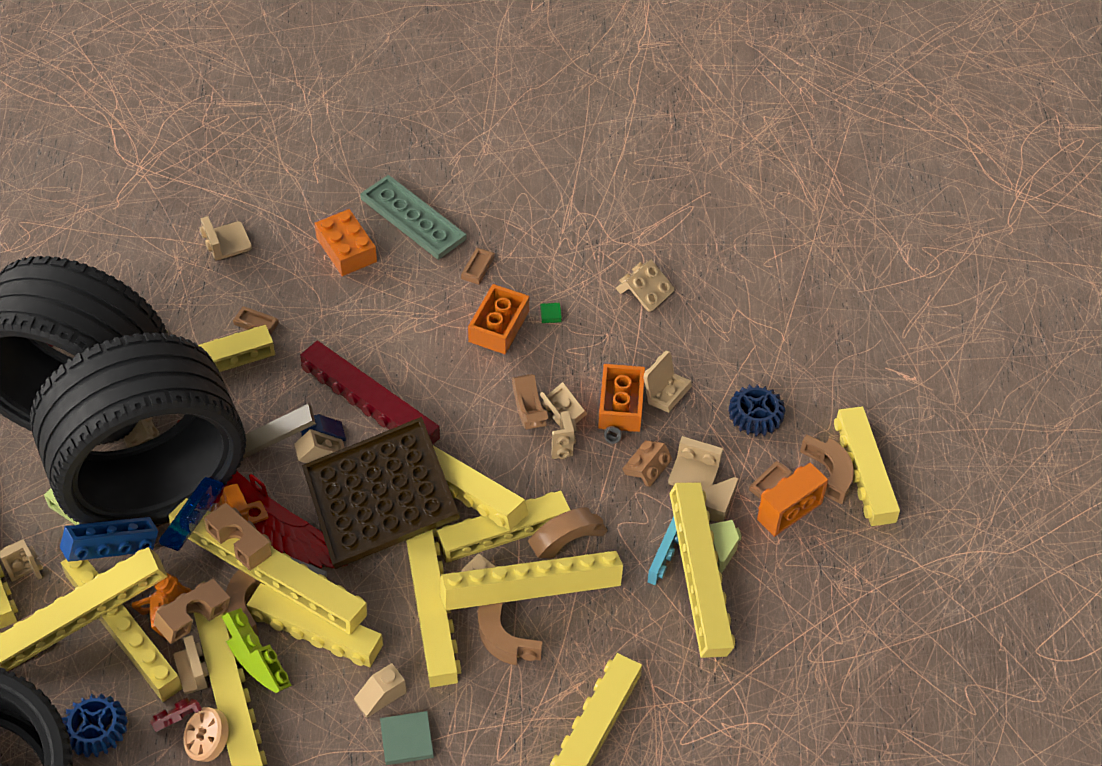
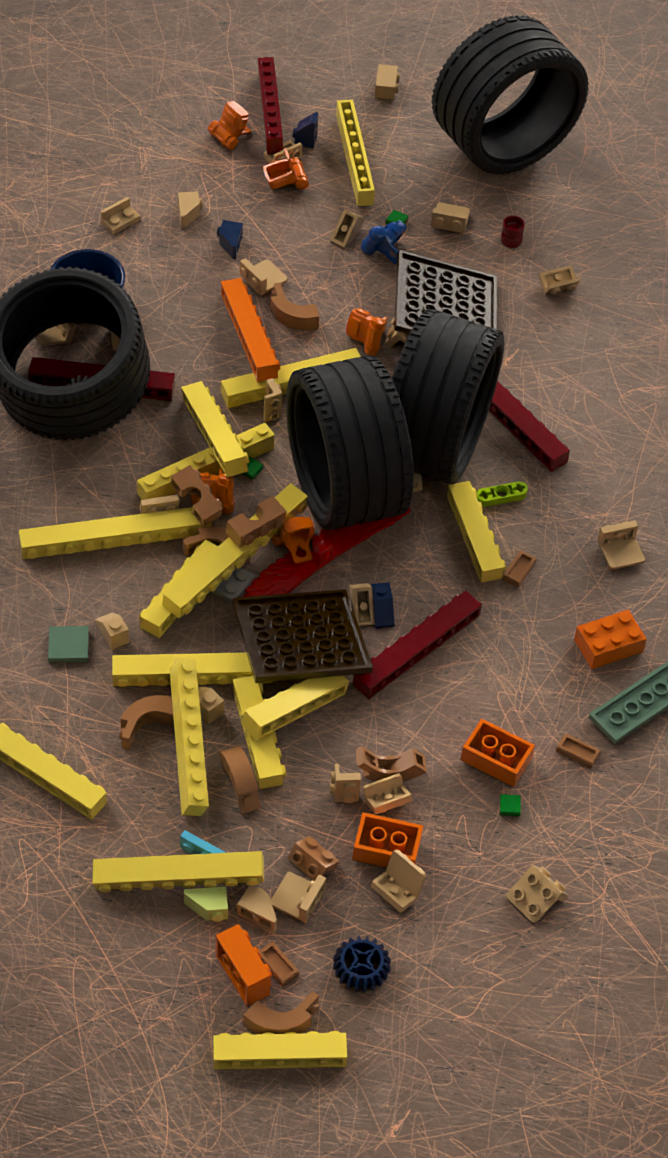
camera: 95 degrees right, 0 degrees up
(97, 712) = (122, 443): blue gear -> none
(108, 538) = (278, 449): blue brick -> none
(182, 708) = (118, 495): dark red wing -> none
(191, 514) = (287, 495): clear blue bracket -> none
(205, 734) = (95, 511): light nougat wheel -> none
(257, 660) = (159, 542): lime slope -> none
(279, 429) = (379, 567): dark tan tile -> none
(612, 438) = (349, 832): dark grey hinge -> none

